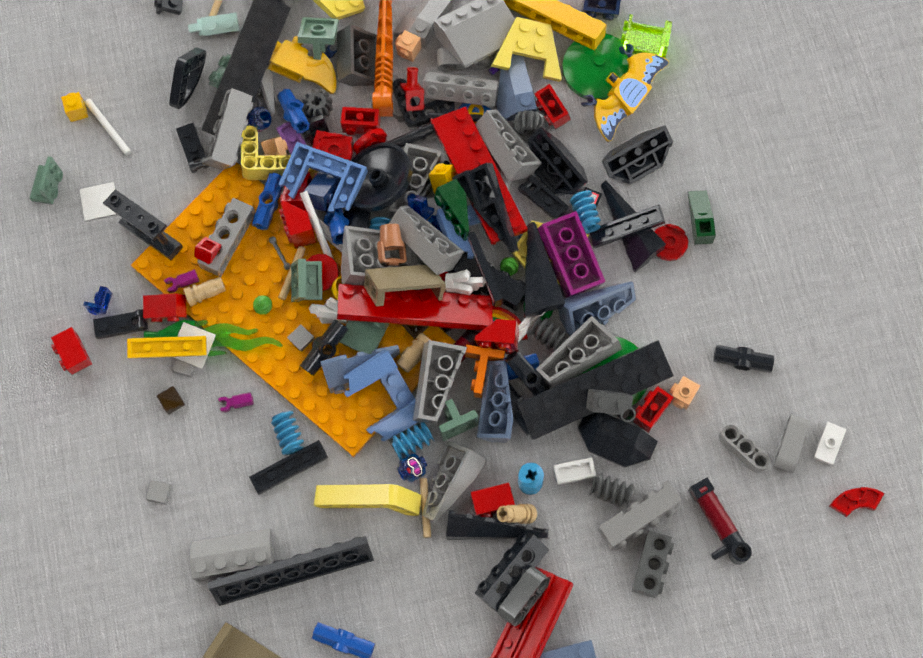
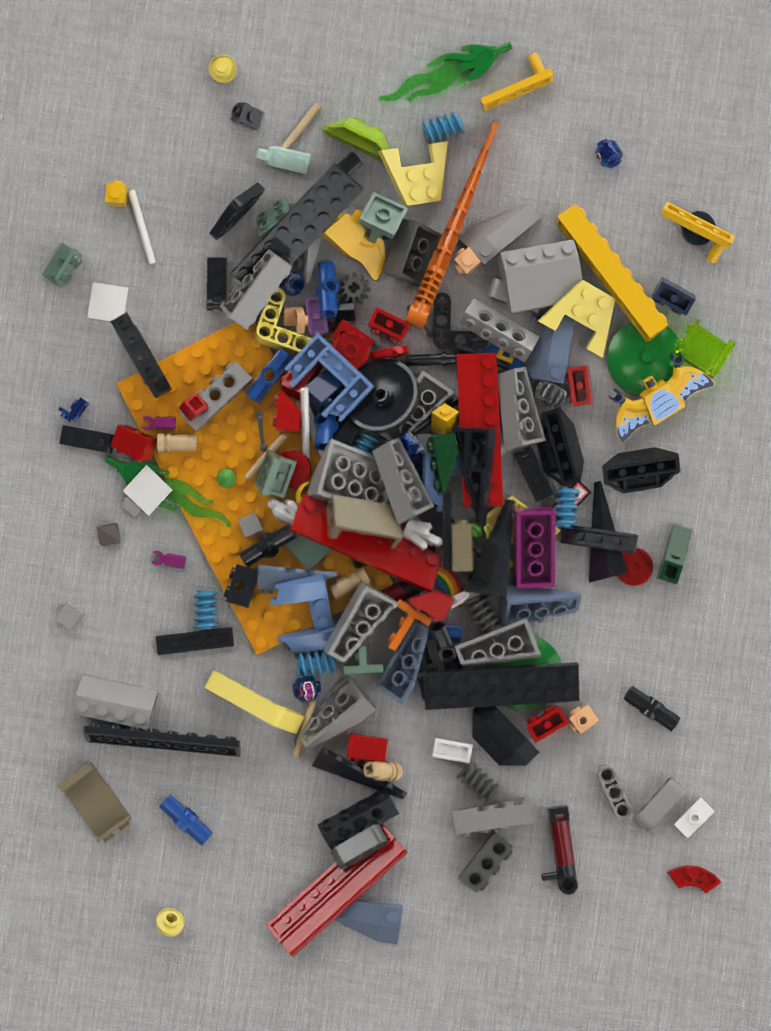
camera: 15 degrees right, 15 degrees up
(71, 351) = (32, 450): red brick -> none
(166, 347) = (122, 485): yellow piece -> none
(319, 404) = (242, 597): none -> black brick
(391, 240) = (367, 470): nougat piece -> none
(413, 89) = (452, 314): red bracket -> none
(505, 275) = (461, 546): none -> dark tan brick
(526, 484) = (402, 739): dark azure piece -> none
(611, 403) = (508, 707): dark grey hinge -> none

